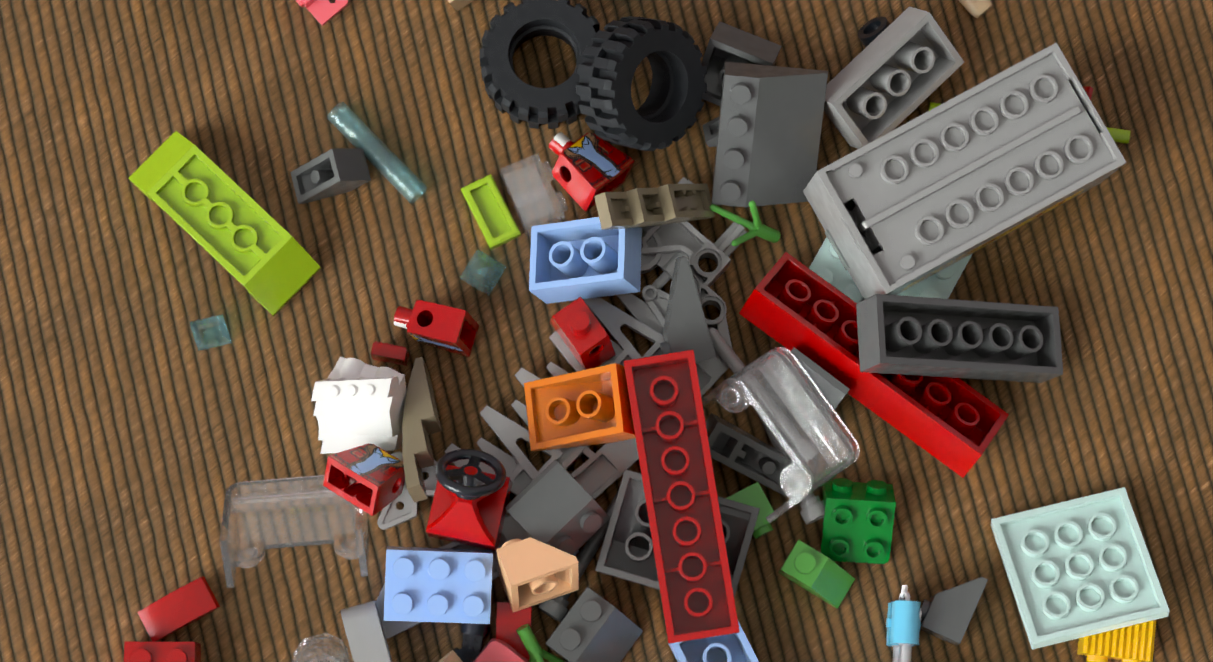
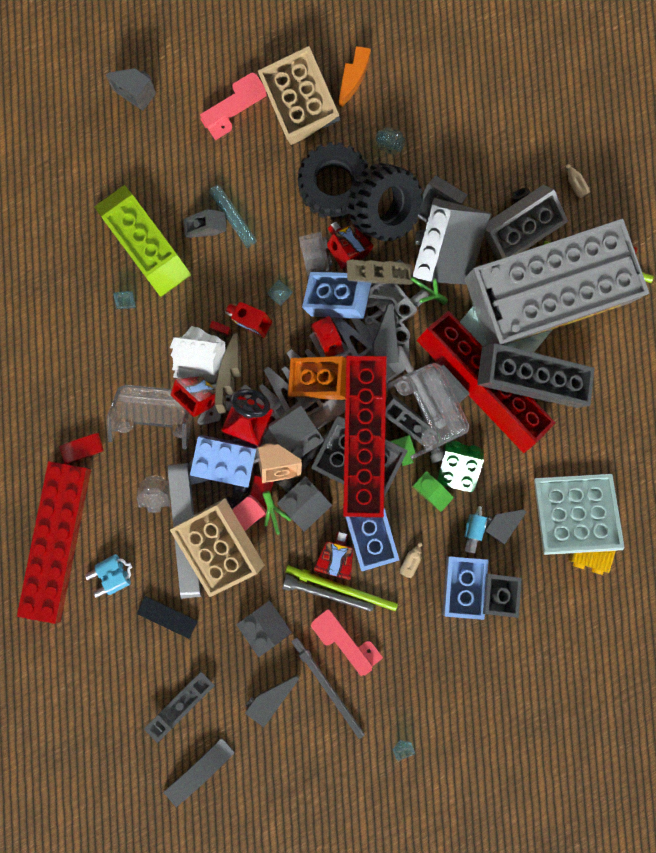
camera: 15 degrees right, 5 degrees up
(490, 212) = (289, 260): lime tile -> none

